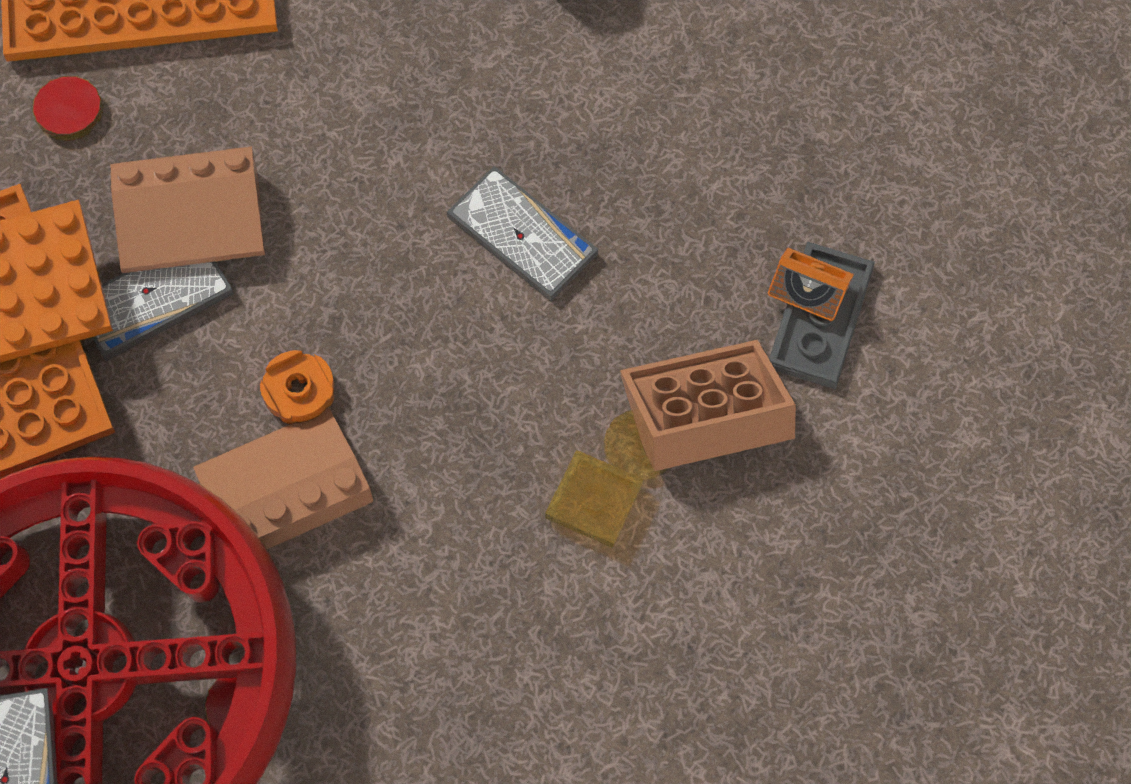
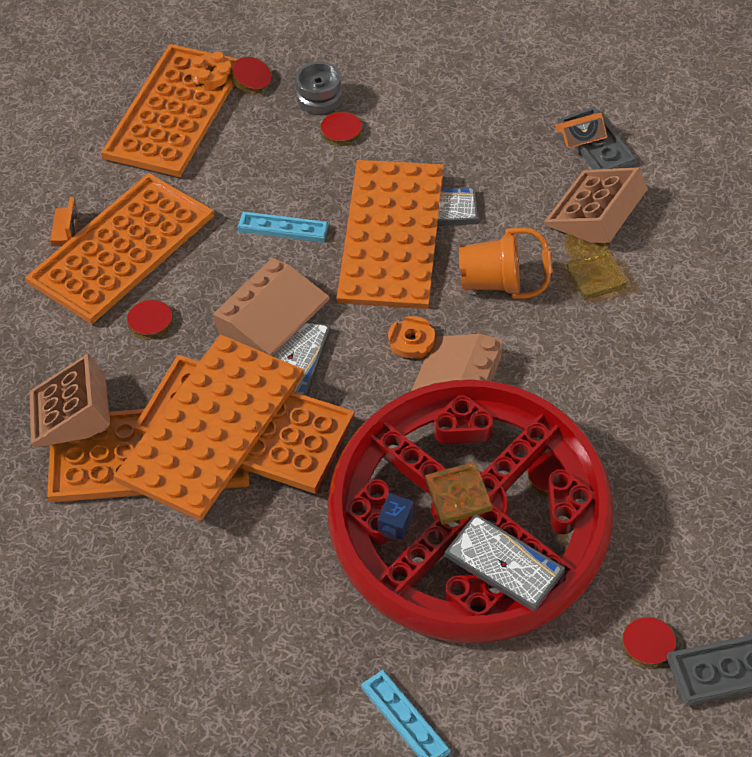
camera: 40 degrees left, 15 degrees down
(57, 645) = (458, 492): none -> clear yellow plate
(333, 112) = (283, 227): none -> medium azure tile
(432, 228) = (391, 234): none -> orange plate
(481, 386) = (496, 264): none -> orange piece
(544, 33) = (341, 128): none -> red tile

